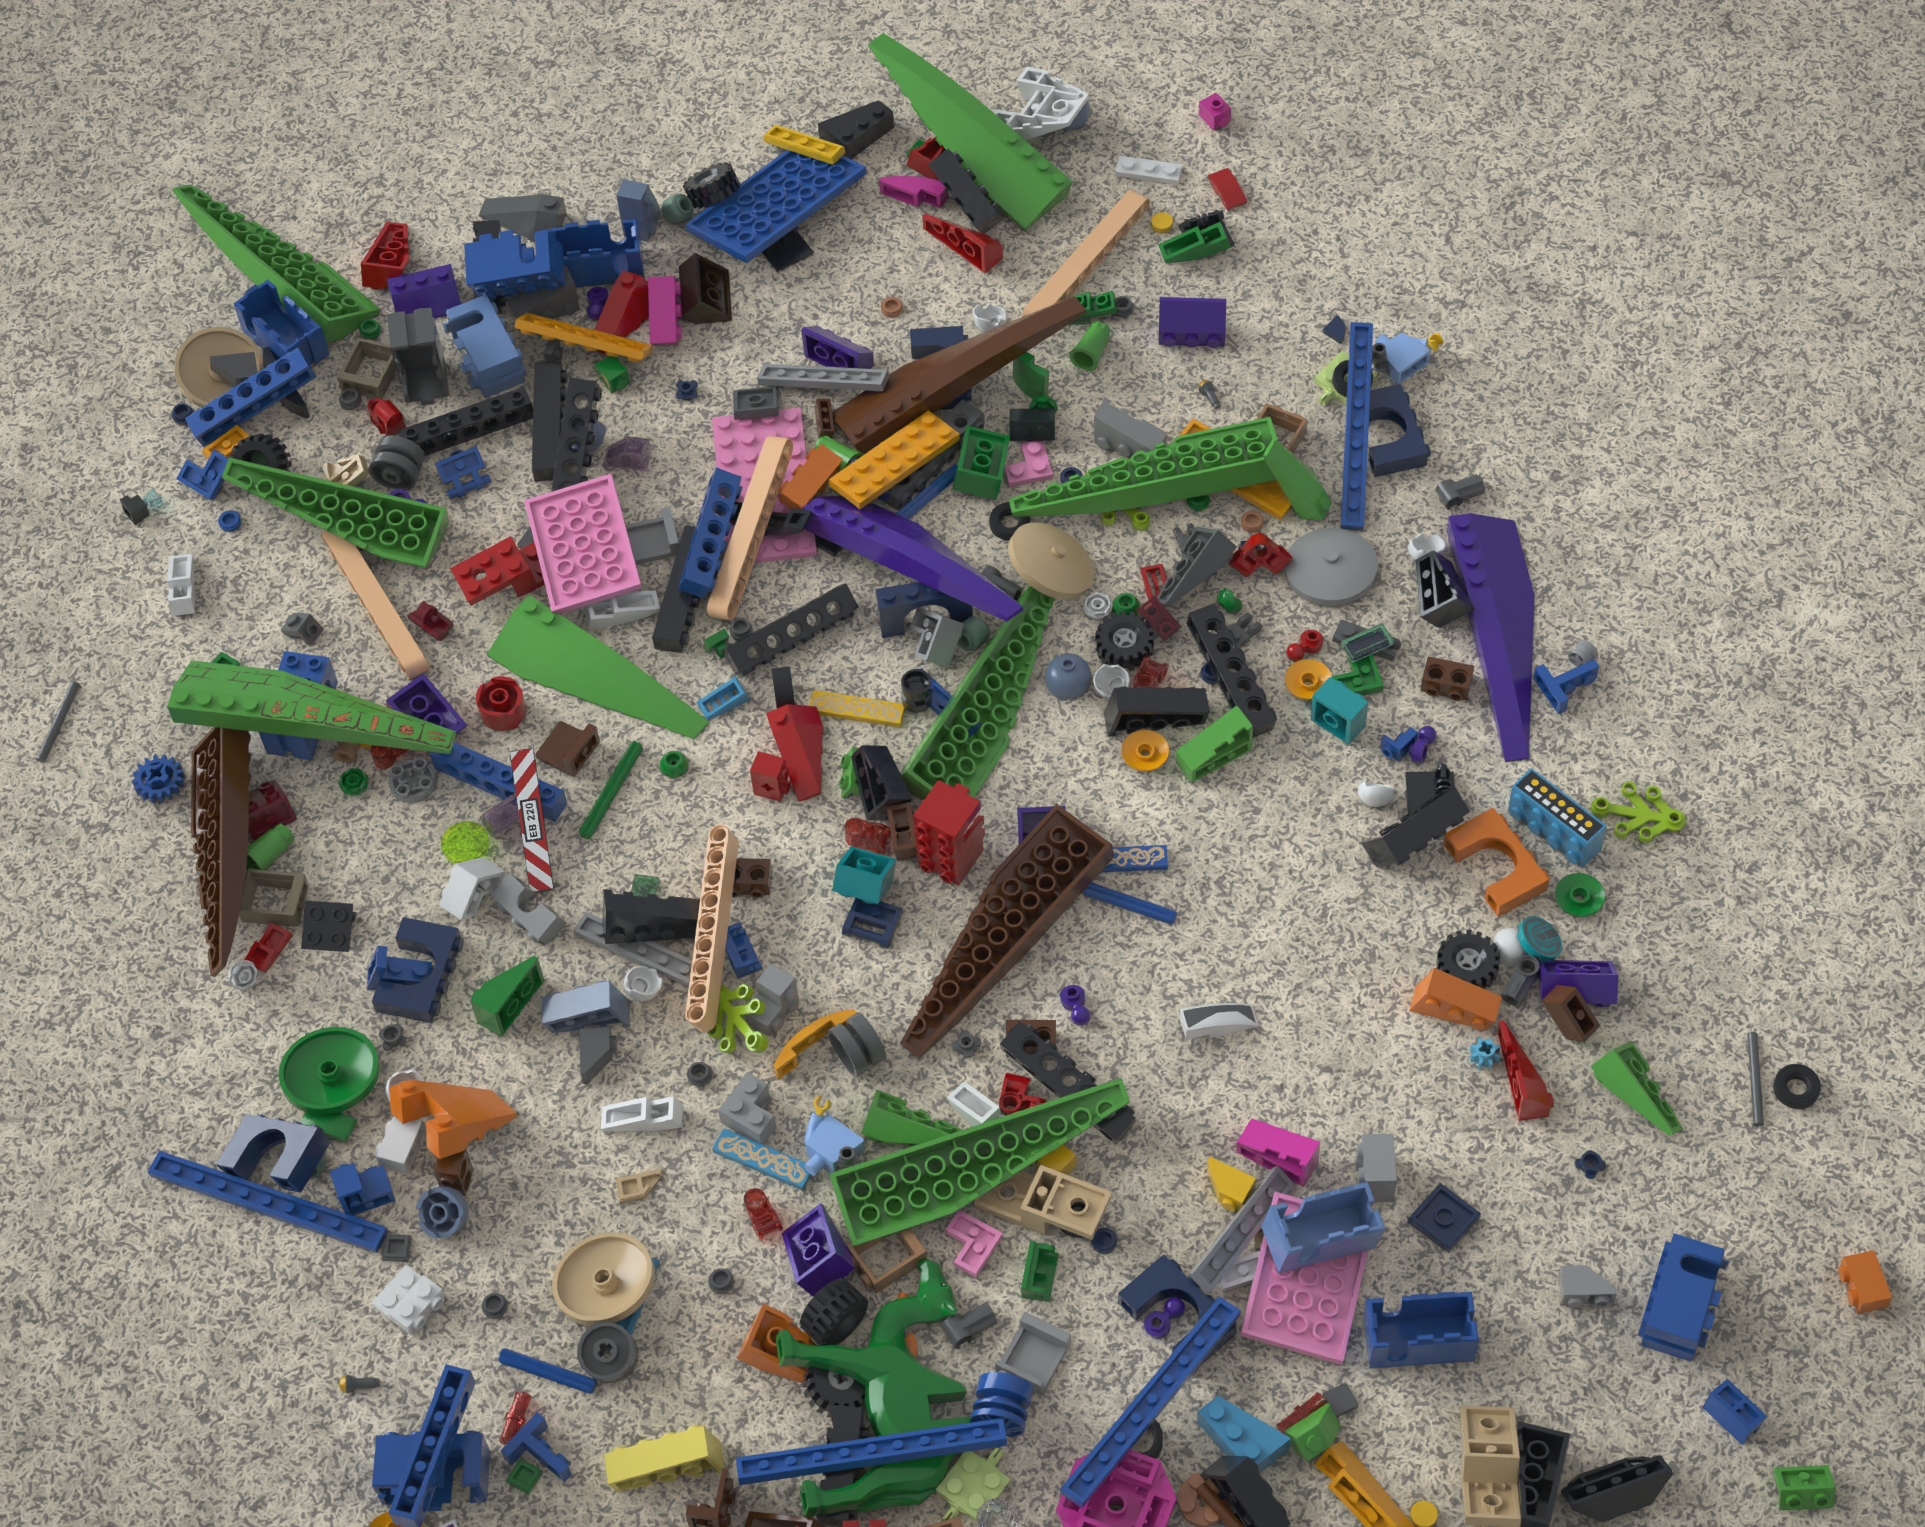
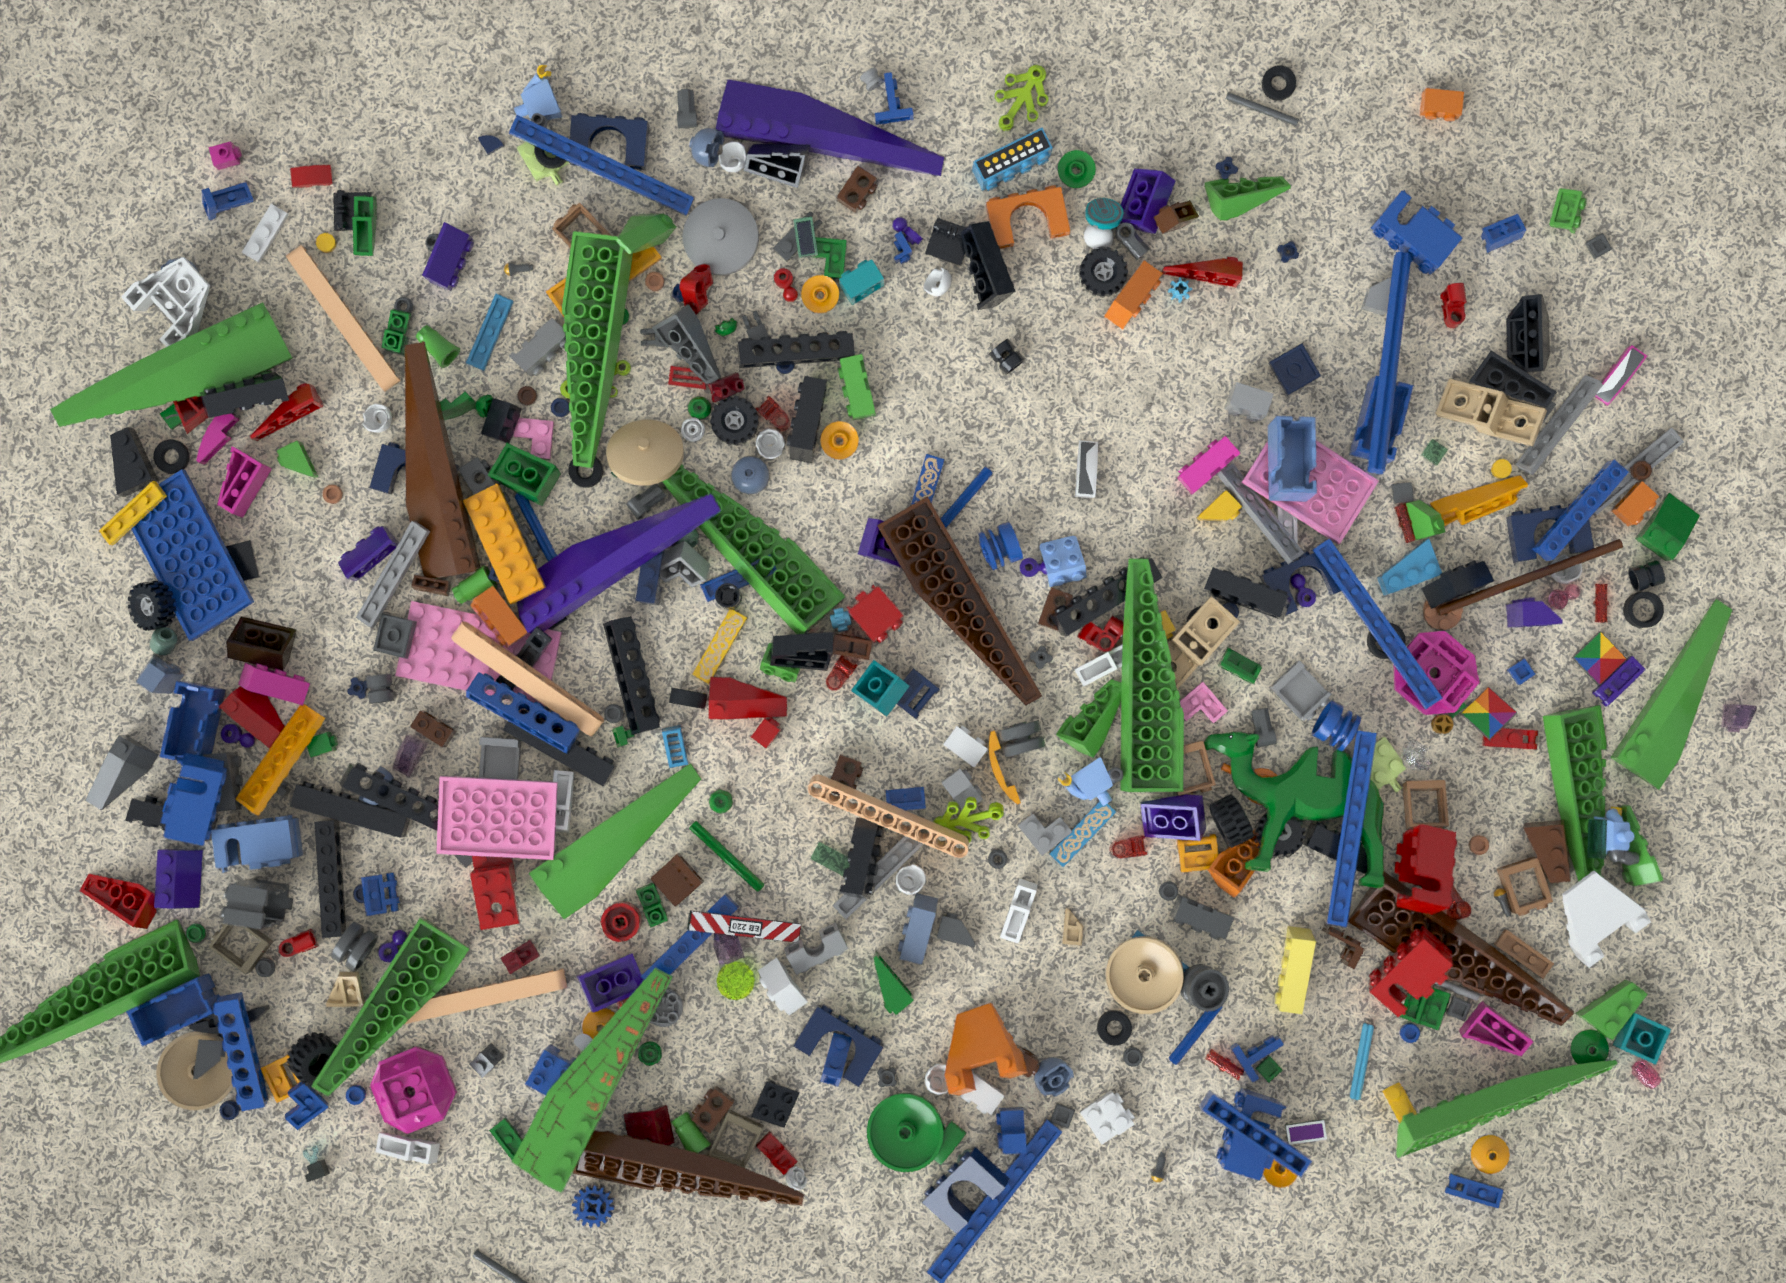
camera: 70 degrees left, 30 degrees up
(251, 569) = (432, 1086): none -> dark pink piece
(306, 858) = (716, 1111): none -> reddish brown brick
(520, 1258) = (1125, 1033): none -> black tyre
(531, 733) = (652, 904): none -> green slope
(664, 466) = (433, 728): none -> reddish brown brick
(691, 406) = (380, 688): none -> dark grey wheel
(698, 1322) = (1201, 917): none -> dark grey wedge
(769, 1293) = (1200, 859): none -> light orange plate
(826, 991) = (965, 746): none -> white brick
(872, 224) = (242, 482): none -> dark pink wedge
(878, 151) = (163, 447): none -> black tyre
(917, 263) = (296, 459): none -> bright green slope
(1071, 444) = (527, 395): none -> reddish brown tile
(1085, 949) = (1000, 545): none -> blue wheel
(1092, 1028) = (1063, 561): none -> light blue bracket
(1128, 390) = (489, 332): none -> dark azure tile
(1133, 1236) = (1247, 593): none -> black wedge
(1168, 122) = (225, 199): none -> blue bracket
(1318, 889) = (1010, 362): none -> black wheel
(1410, 1423) = (1434, 452): none -> clear green tile
(1426, 516) = (706, 145): none -> sand blue cylinder
(1493, 1298) = (1389, 363): none -> blue axle
(1616, 1376) = (1453, 304): none -> red piece
(1657, 1065) = (1232, 169): none -> dark blue plate

